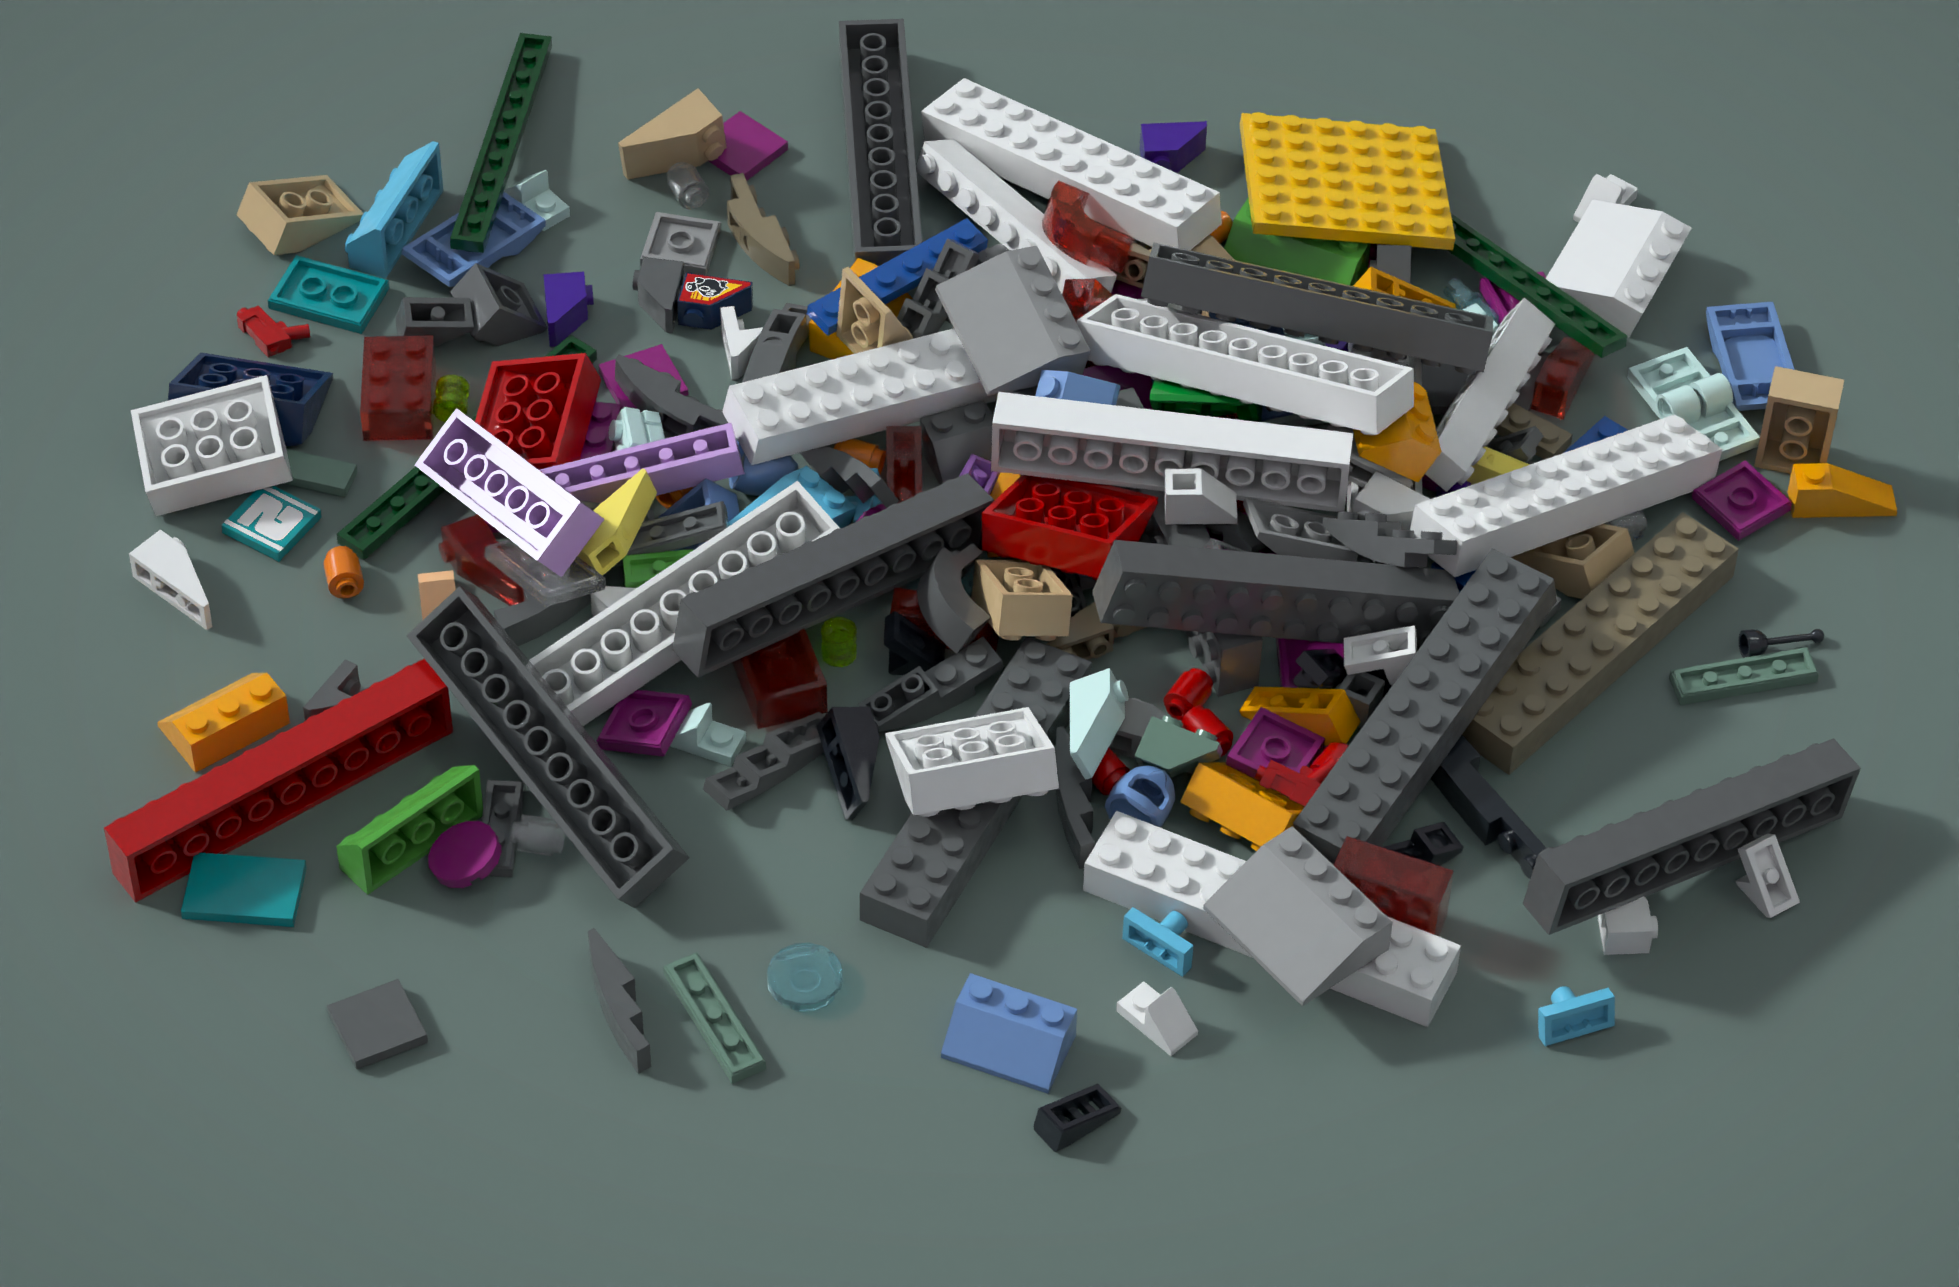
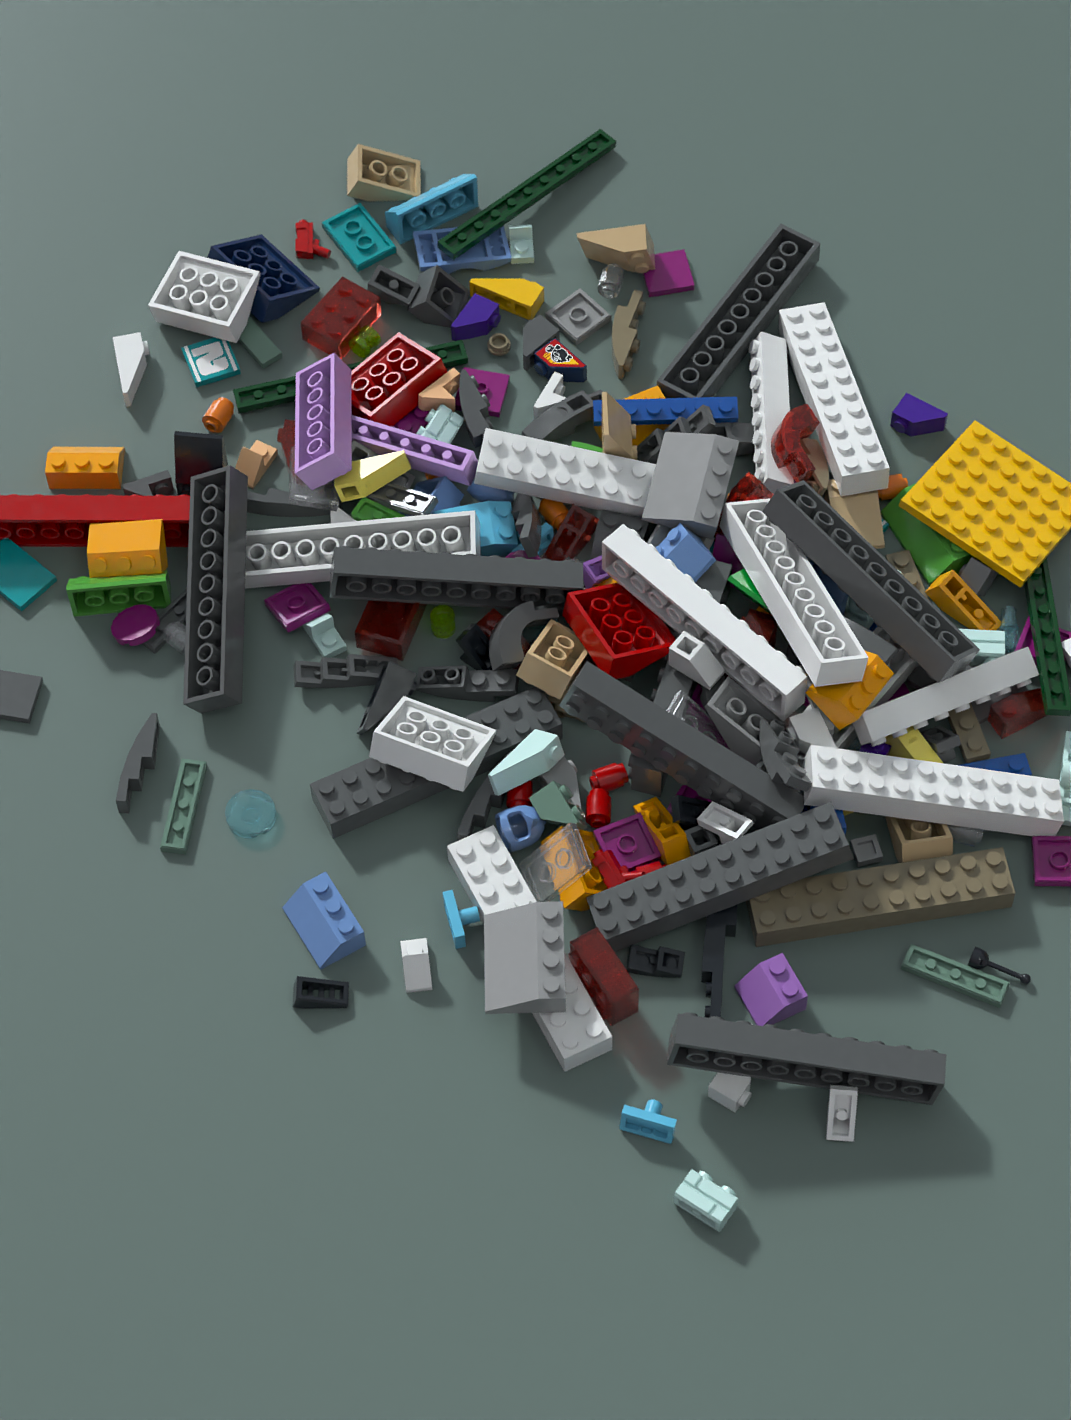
camera: 40 degrees right, 10 degrees up
(379, 620) = (196, 455): none -> black slope
(386, 767) = (126, 548): none -> light orange slope
(594, 251) = (512, 295): none -> yellow slope
(608, 398) = (440, 392): none -> light nougat slope
(616, 319) = (498, 344): none -> dark tan plate
(1229, 803) = (556, 864): none -> clear tile
(1575, 799) = (772, 991): none -> medium lavender slope
(1711, 1053) = (706, 1199): none -> light aqua brick

